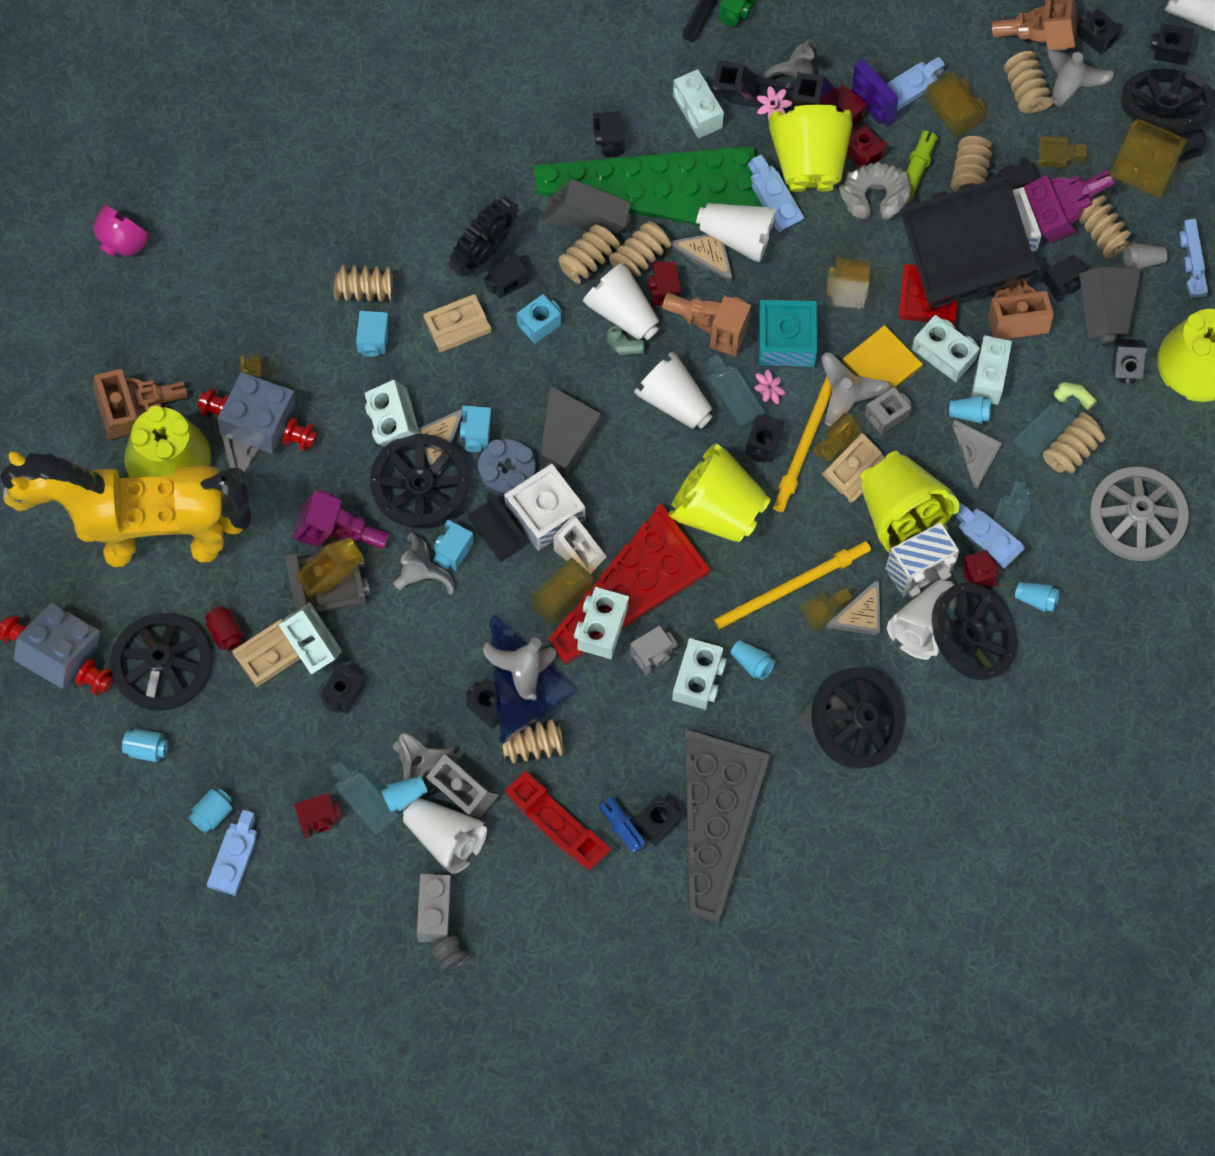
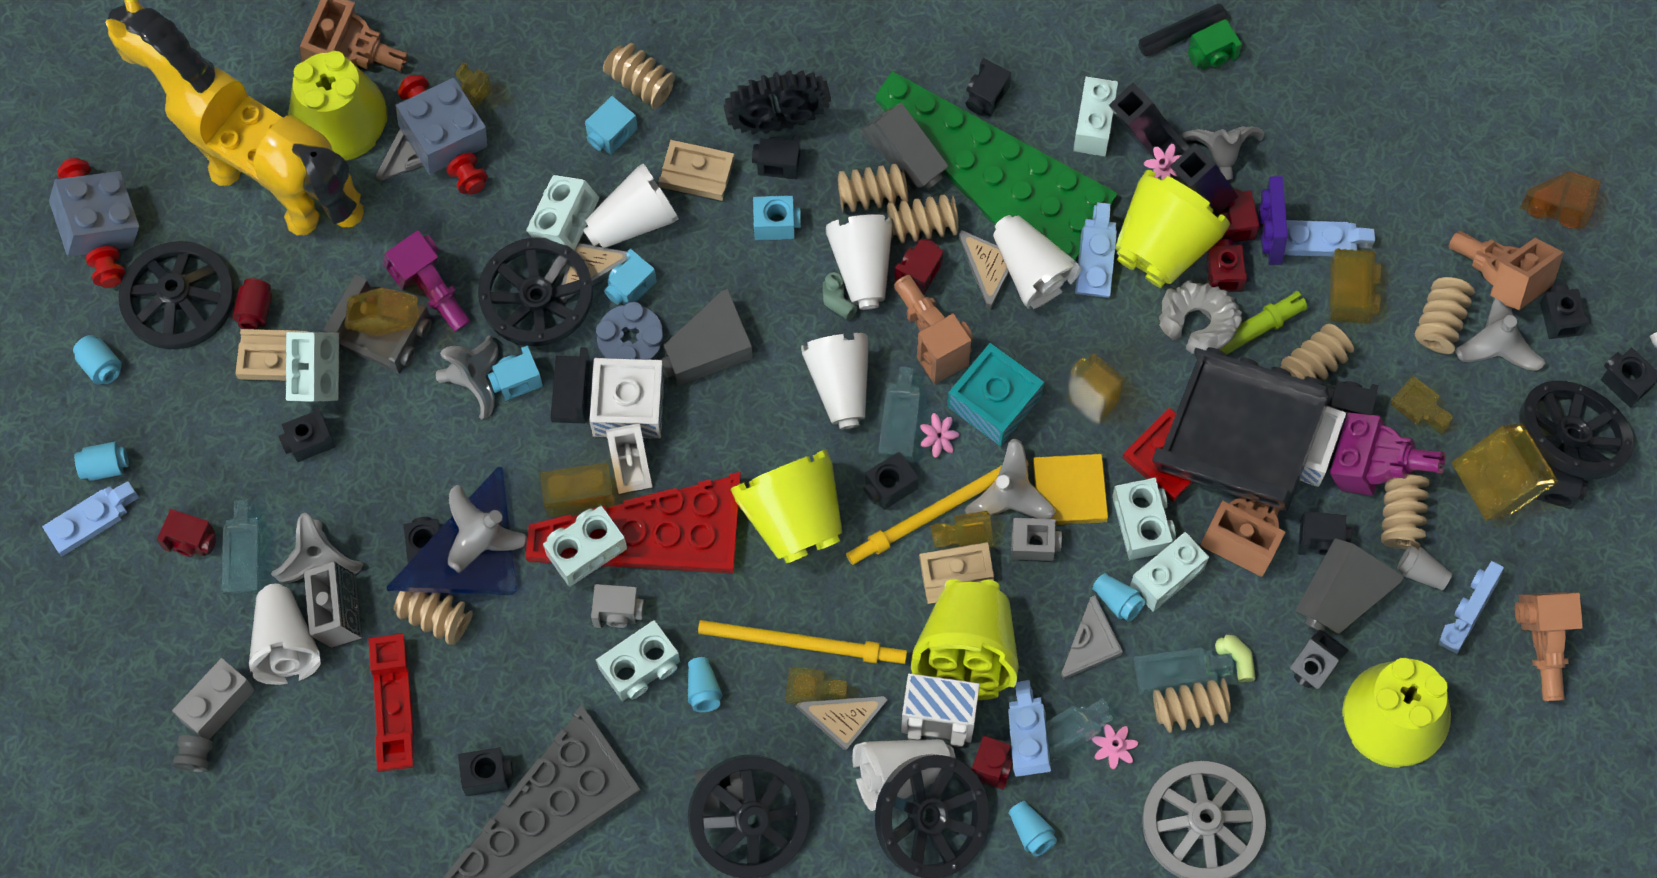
camera: 40 degrees right, 0 degrees up
(403, 793) = (271, 571): medium azure cone -> none
(439, 379) = (630, 211): none -> white cone
(622, 825) = (448, 752): blue axle -> none
(1045, 511) = (1114, 752): none -> bright pink plant

